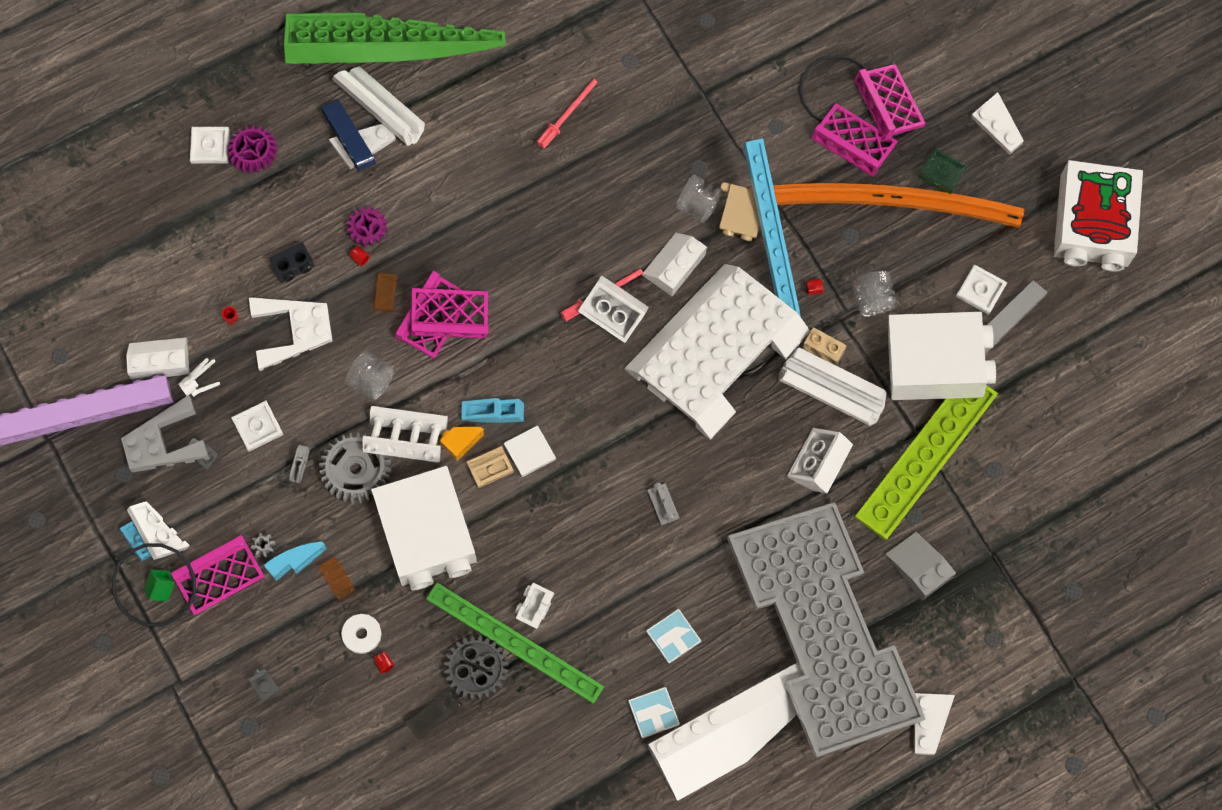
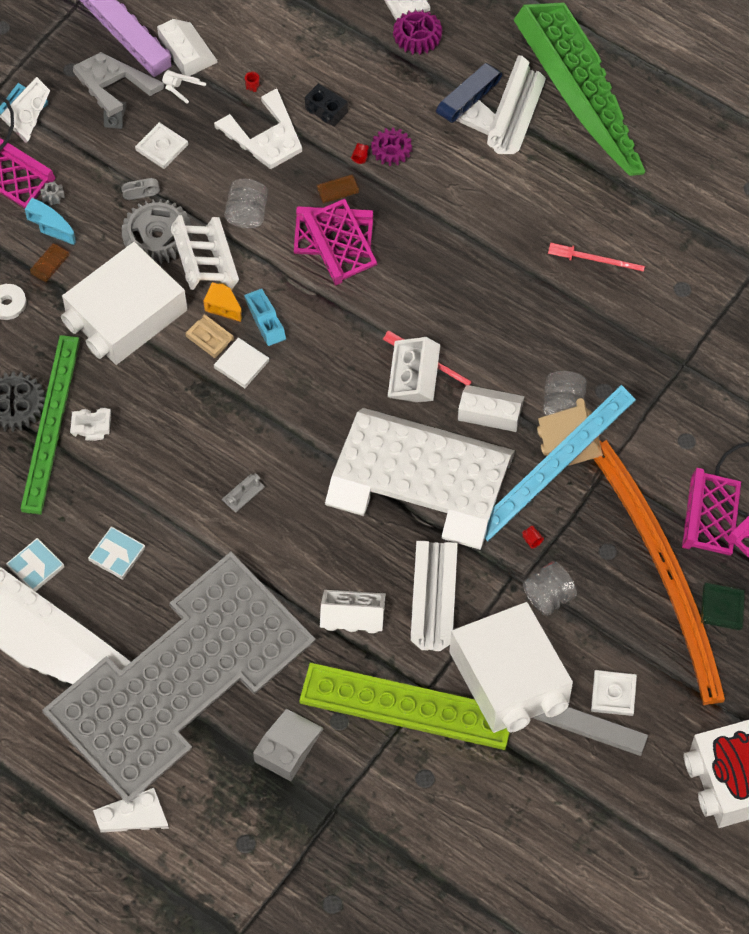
camera: 70 degrees right, 10 degrees down
(824, 346) = (471, 568): tan brick -> none

